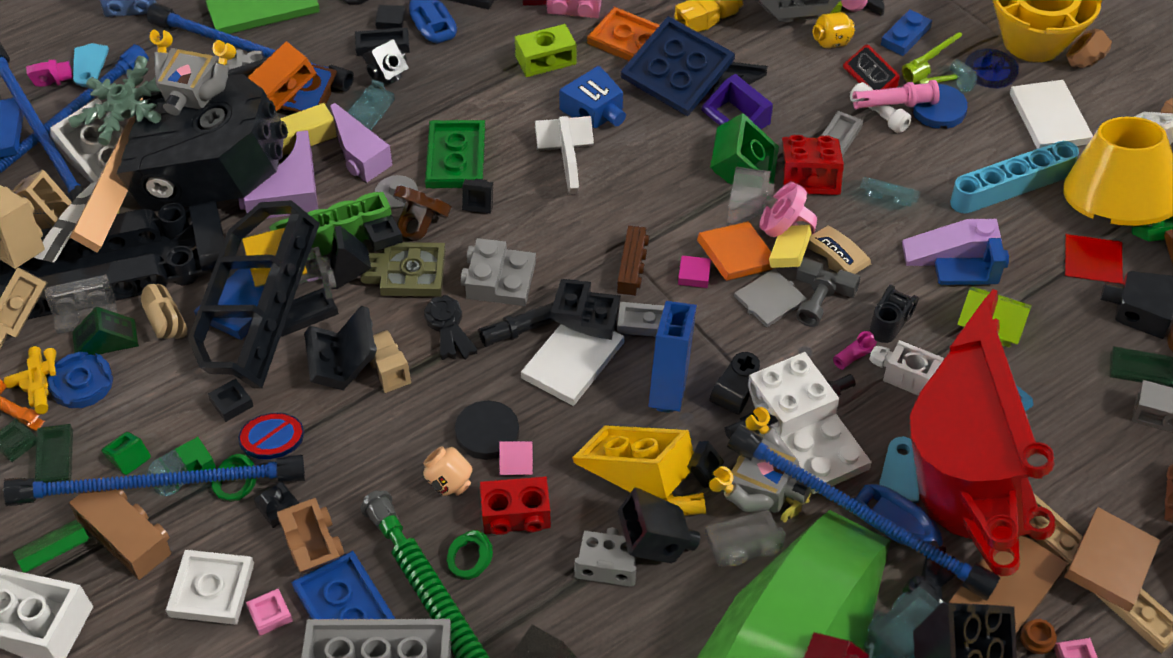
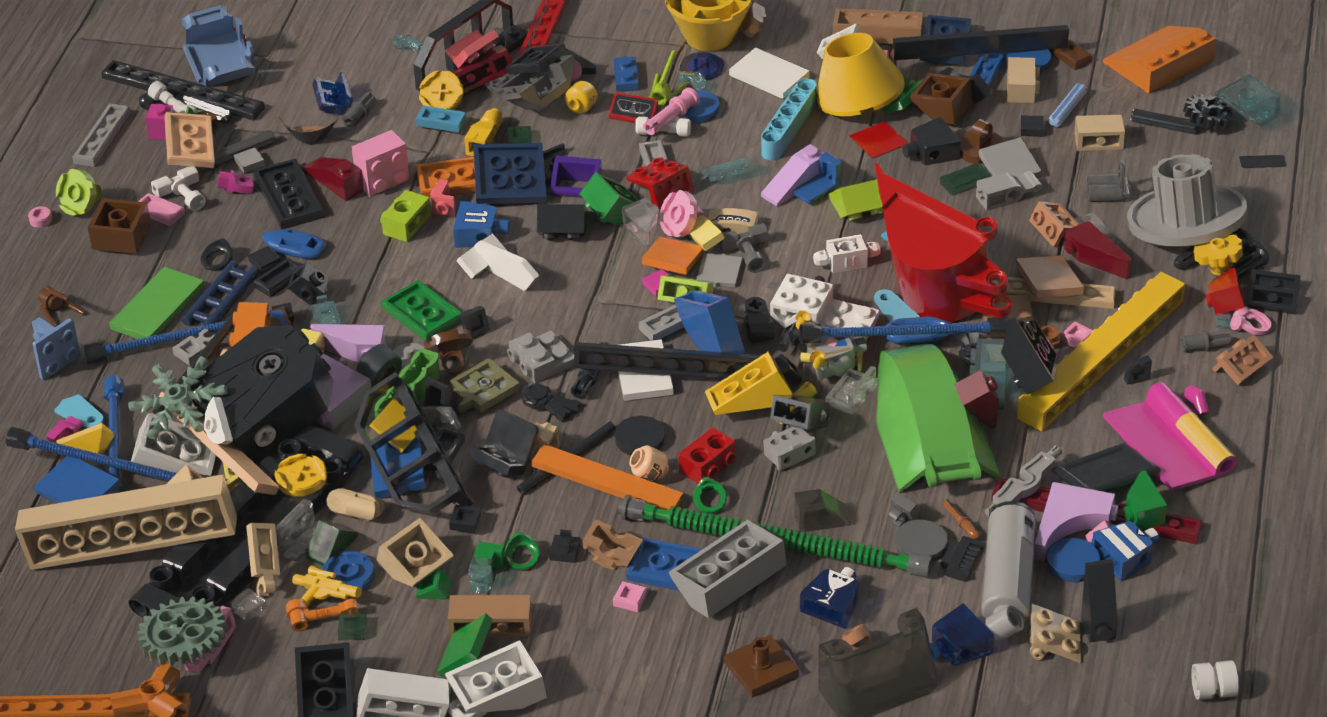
camera: 40 degrees left, 10 degrees down
(22, 490) = (419, 625): blue hose -> none
(45, 96) = (92, 439): none -> yellow slope
(54, 453) = (390, 617): clear green tile -> none
(62, 229) = (219, 469): sticker -> none
(116, 146) = (216, 422): none -> white plate
(133, 405) = (413, 554): none -> tan slope
(140, 248) = (301, 475): none -> yellow tile
(189, 76) = (228, 347): light grey torso -> none
(210, 587) = (582, 606): white plate -> none
(271, 436) = (519, 516): piece -> none
(326, 17) = (220, 285): none -> dark blue bar
(340, 182) = (379, 363): none -> black wheel
(383, 232) = (448, 372): black plate -> none
(397, 459) = (604, 477): none -> orange tile
(399, 401) = (576, 450): none -> black piece
(516, 457) = (677, 435): bright pink tile -> none
(585, 310) = (628, 334): black slope -> none
(587, 363) = (659, 360): none -> black tile
(595, 51) = (442, 202): none -> coral bracket
(631, 262) = (614, 299): reddish brown piece -> none
(673, 144) = (561, 220): none -> black slope
(694, 287) = (673, 287): none -> lime brick
(738, 35) = (519, 134): none -> clear green tile
(859, 348) = (804, 261): dark pink arm -> none
(892, 314) = (801, 234): black piece -> none

